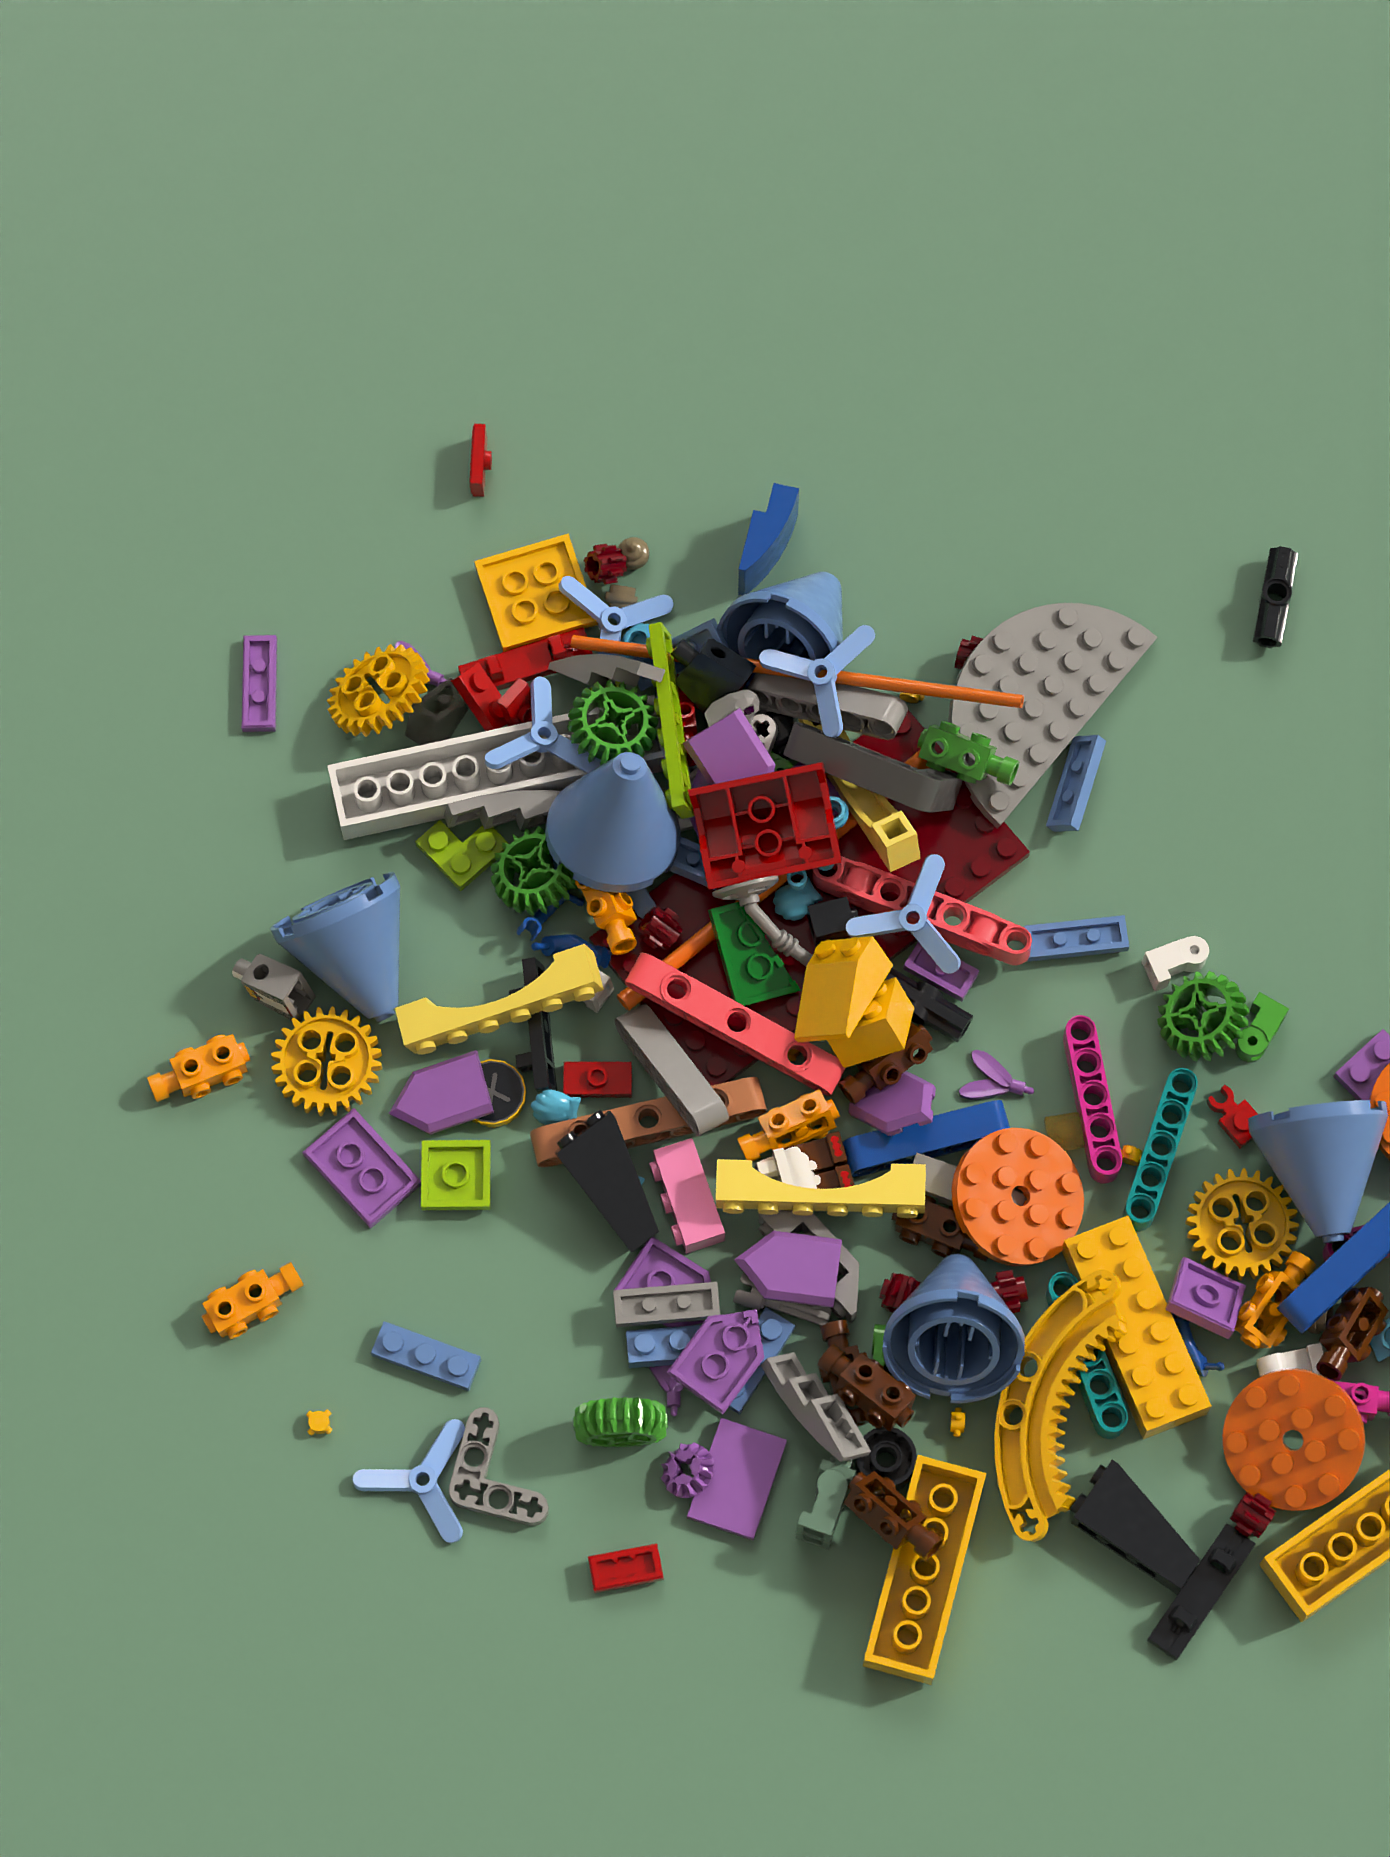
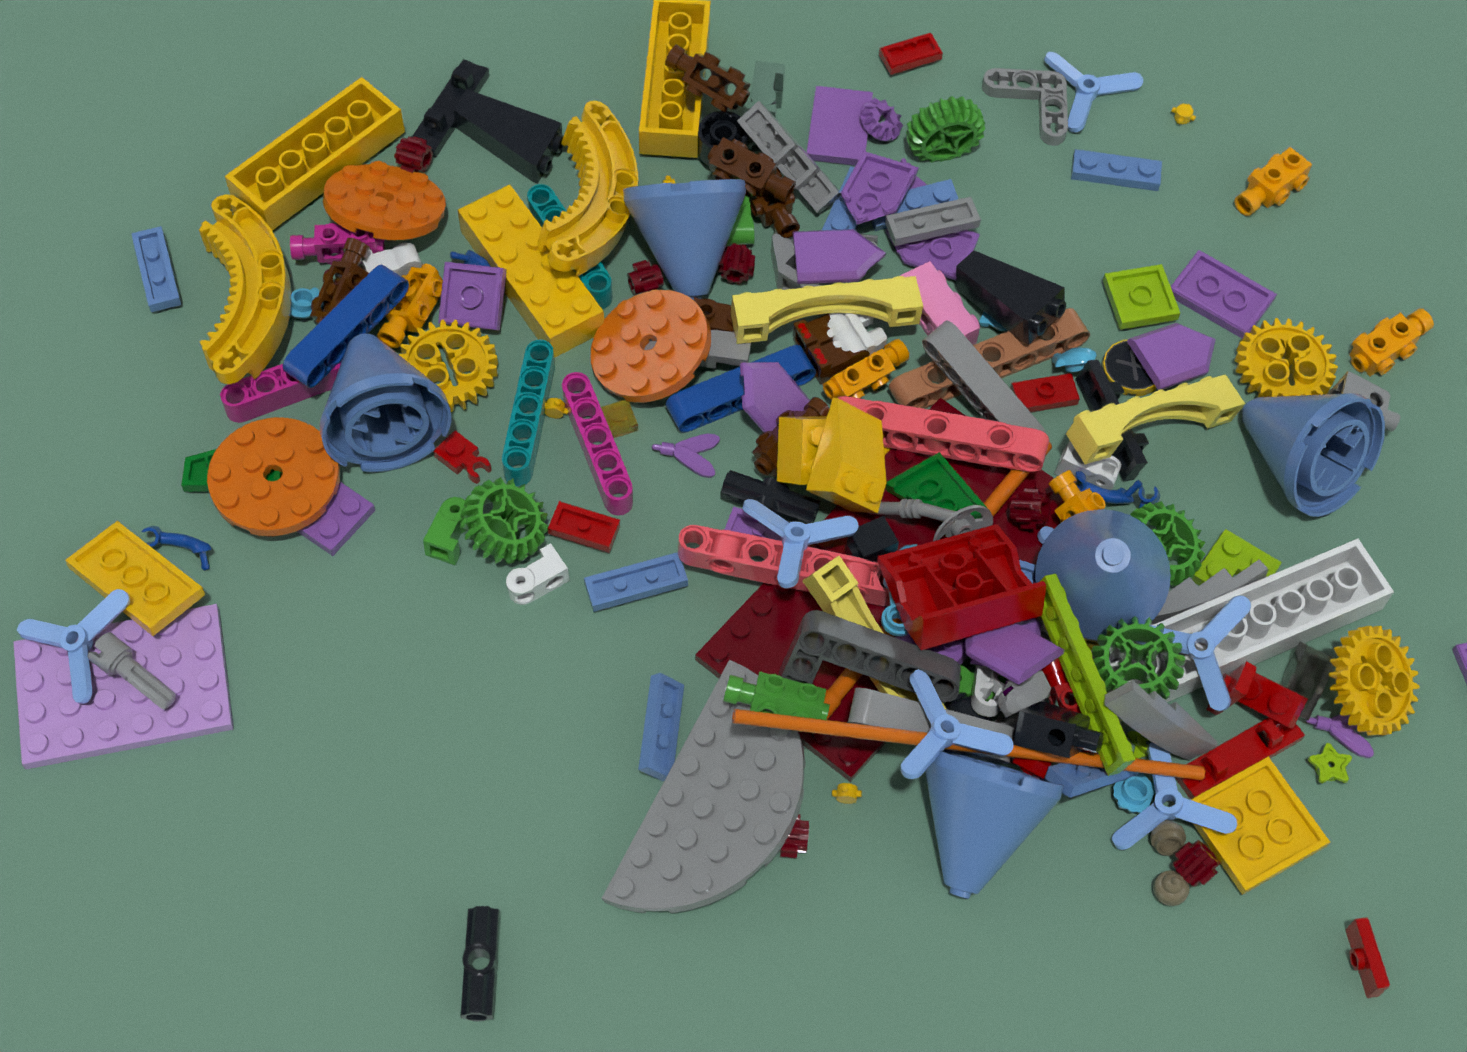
camera: 165 degrees right, 10 degrees down
(443, 645) = (1324, 771): none -> lime plate
(768, 536) = (1039, 918): blue slope -> none
(1119, 1008) = (584, 526): none -> red plate

